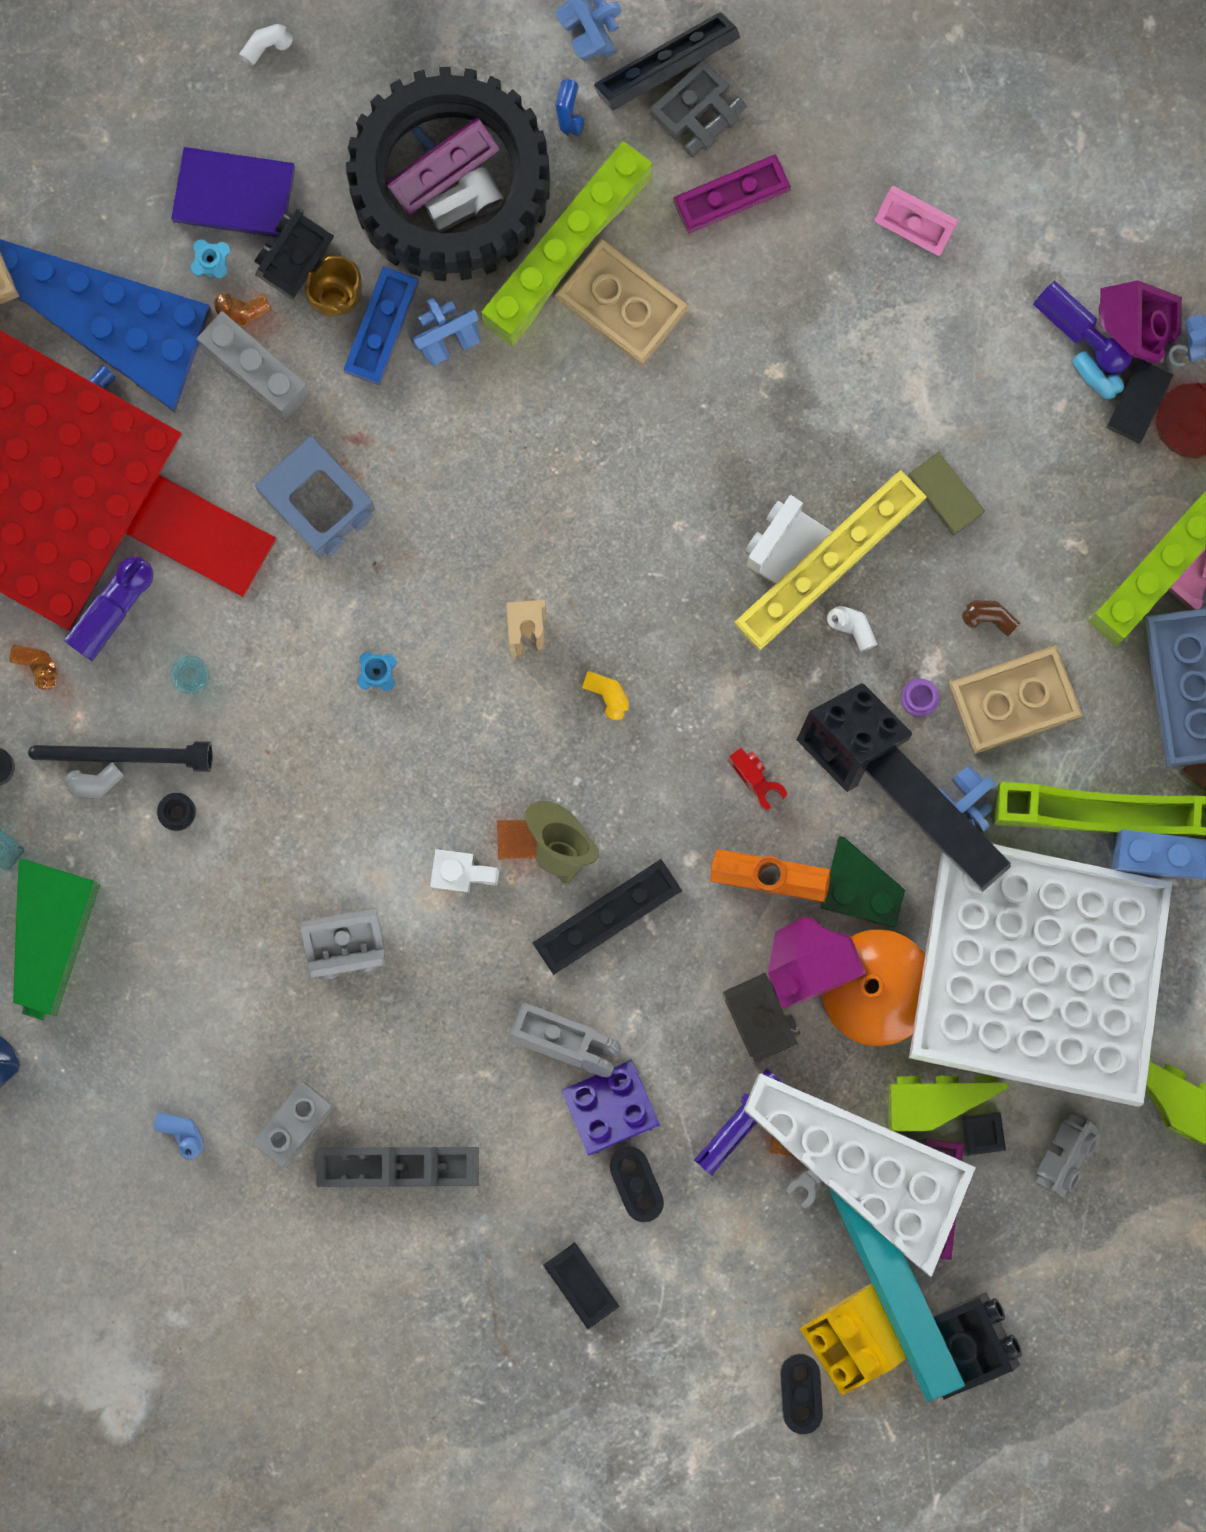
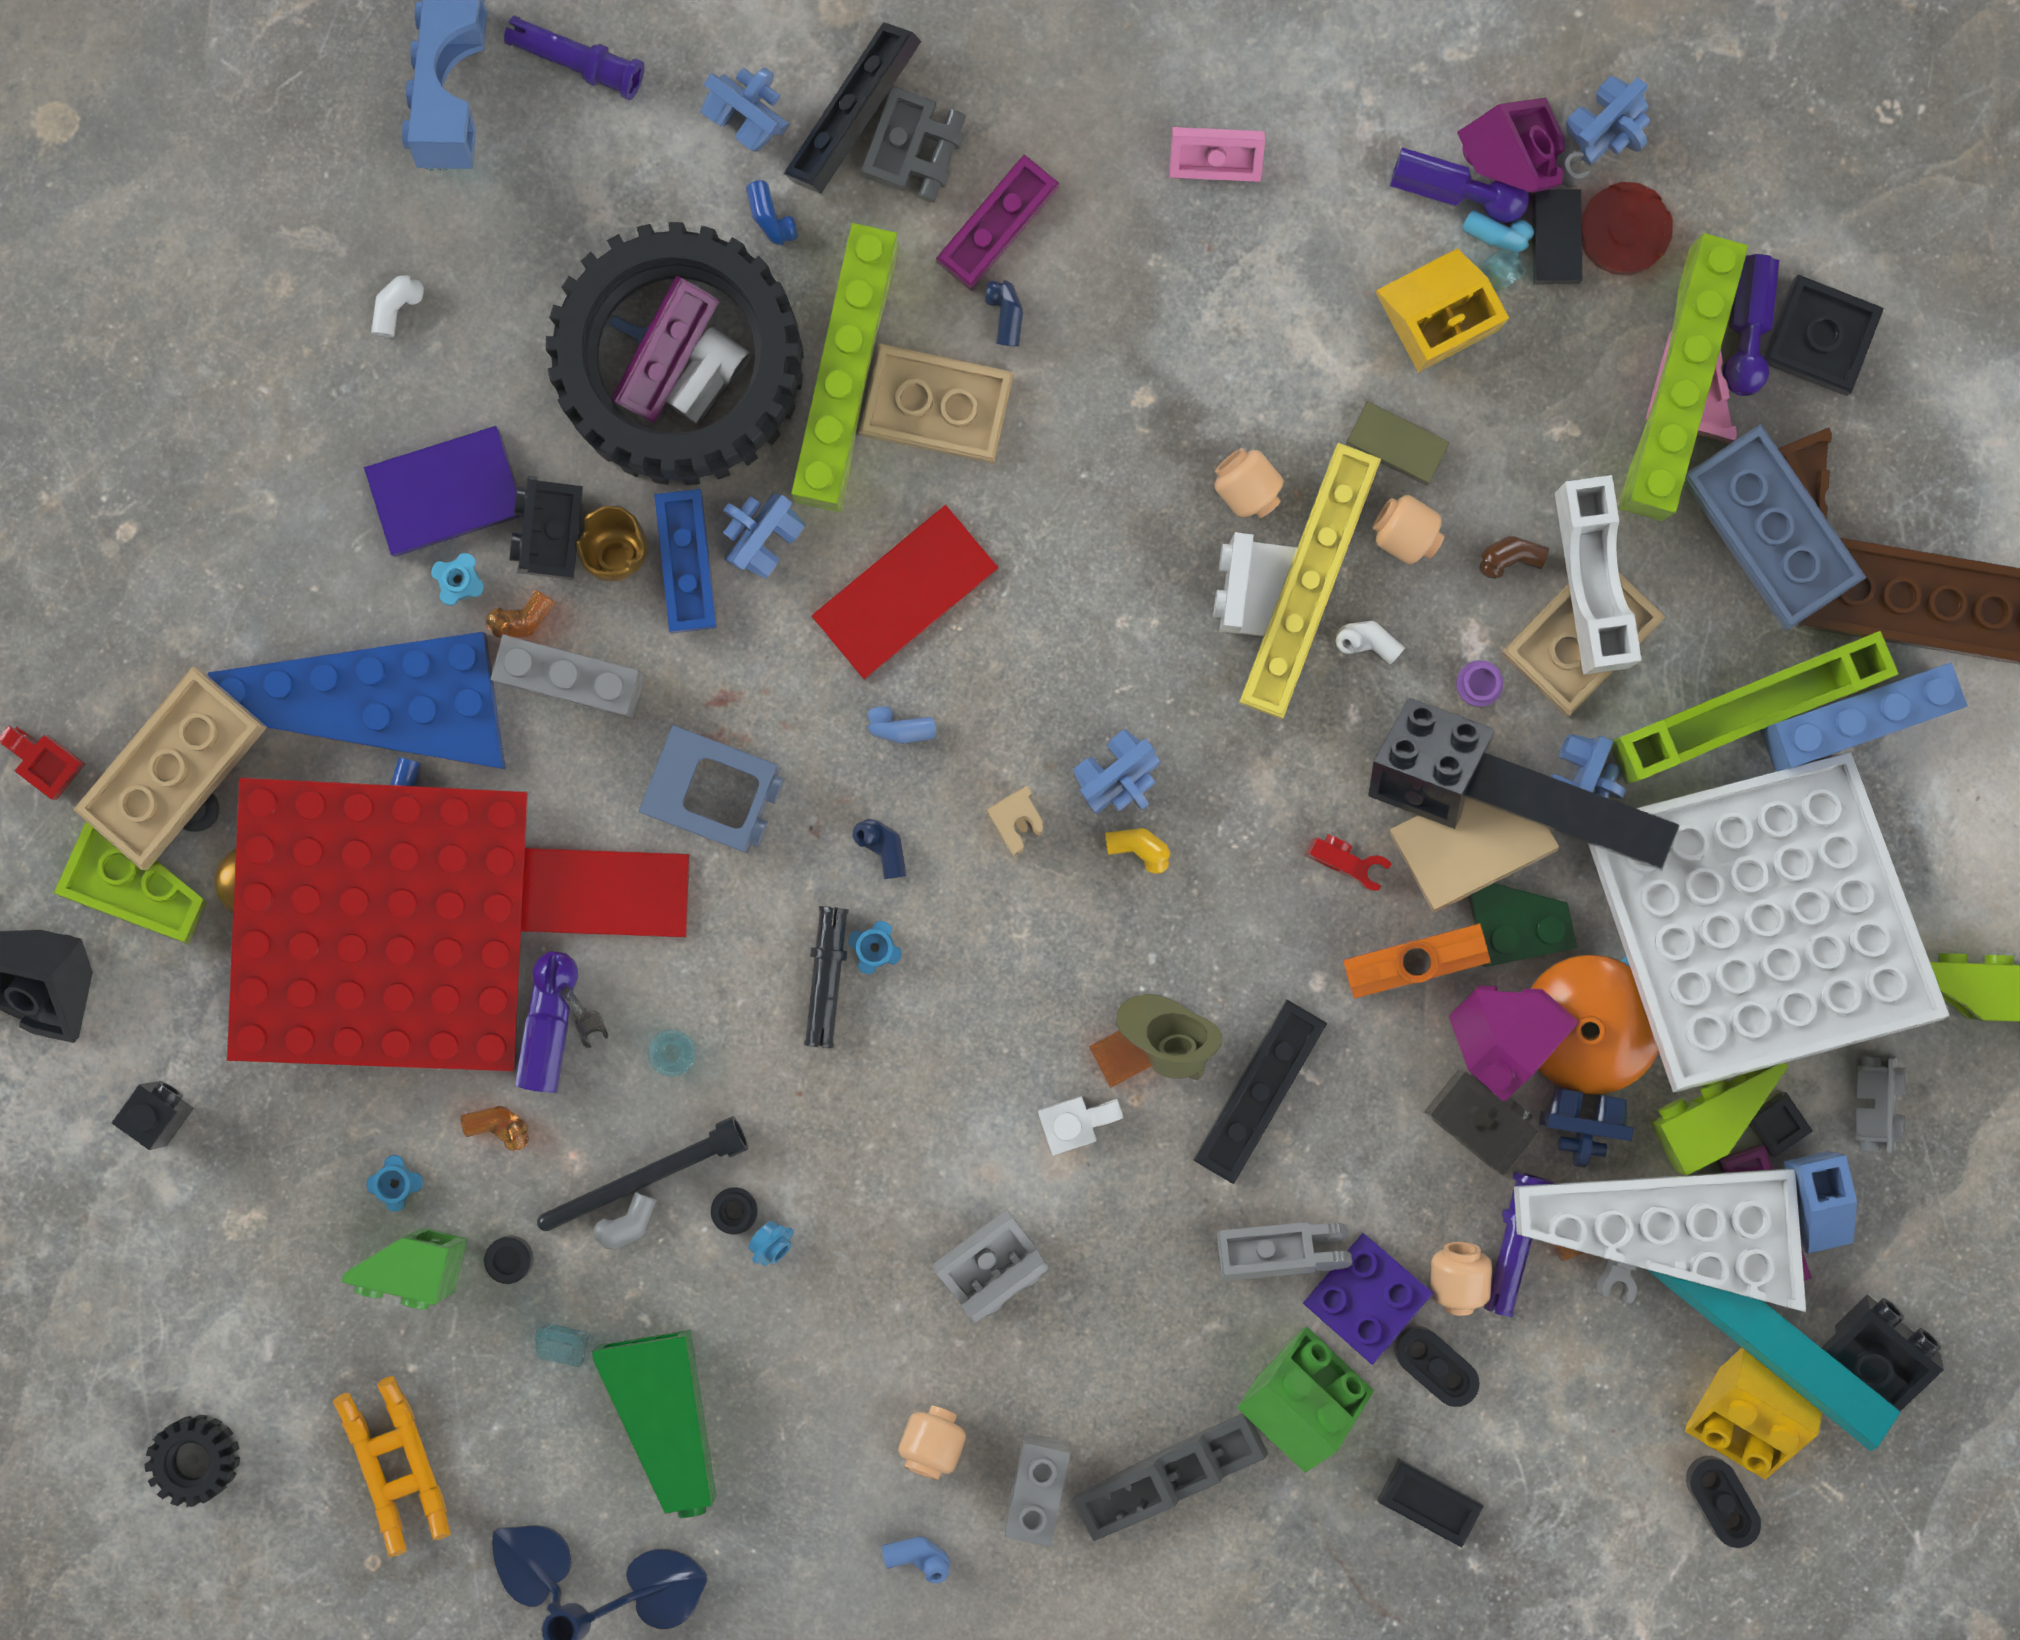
camera: 30 degrees left, 5 degrees up
(139, 620) = (586, 1021): none -> clear smoke hand
(190, 847) = (770, 1243): none -> dark azure plate
(234, 1052) = (932, 1443): none -> light nougat head
(330, 674) = (826, 976): none -> black pin
(422, 599) = (883, 842): none -> dark blue arm
(475, 523) = (900, 731): none -> medium blue arm
(526, 1159) = (1306, 1400): none -> bright green slope
(529, 426) = (904, 592): none -> red piece
(619, 636) = (1122, 780): none -> medium blue hips
(686, 1126) = (1461, 1278): none -> light nougat head
(708, 262) = (1011, 311): none -> dark blue arm
(820, 468) = (1248, 483): none -> light nougat head
(850, 818) = (1473, 855): none -> tan tile
(853, 1067) = (1608, 1122): none -> dark blue hips
(921, 558) = (1408, 529): none -> light nougat head
(986, 1205) = (1824, 1200): none -> medium blue slope
(1026, 411) = (1442, 308): none -> yellow slope
(1042, 656) = (1589, 539): none -> white arch
(1084, 404) = (1503, 269): none -> clear light blue plate

